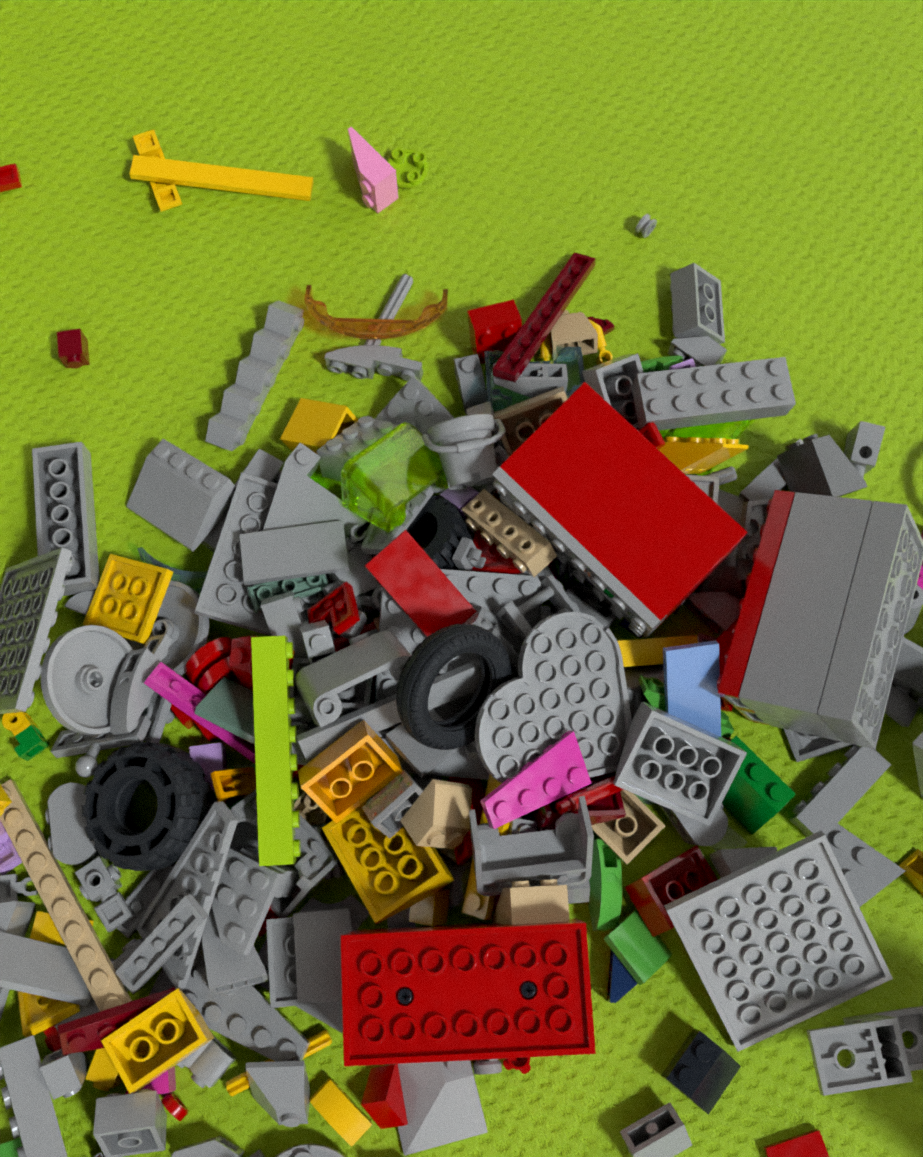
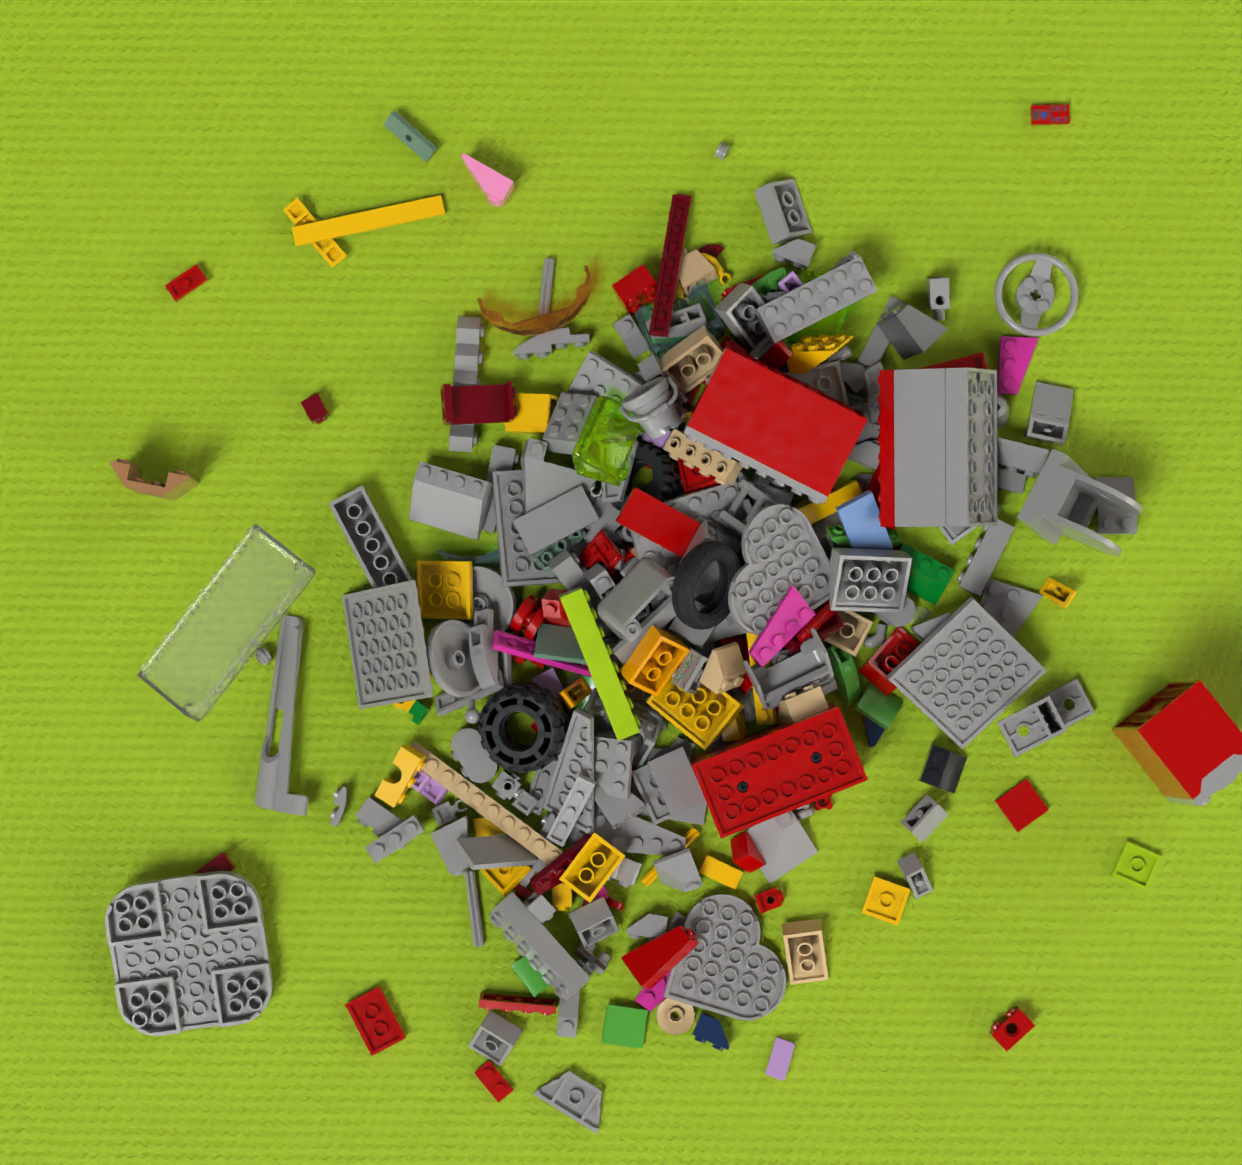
camera: 15 degrees left, 15 degrees up
(255, 392) = (478, 404): none -> dark red panel
(304, 111) = (410, 136): none -> sand green tile
(410, 166) = (512, 160): lime dish -> none
(467, 556) = (680, 483): light grey tile -> none
(661, 853) = (878, 638): none -> light grey arm

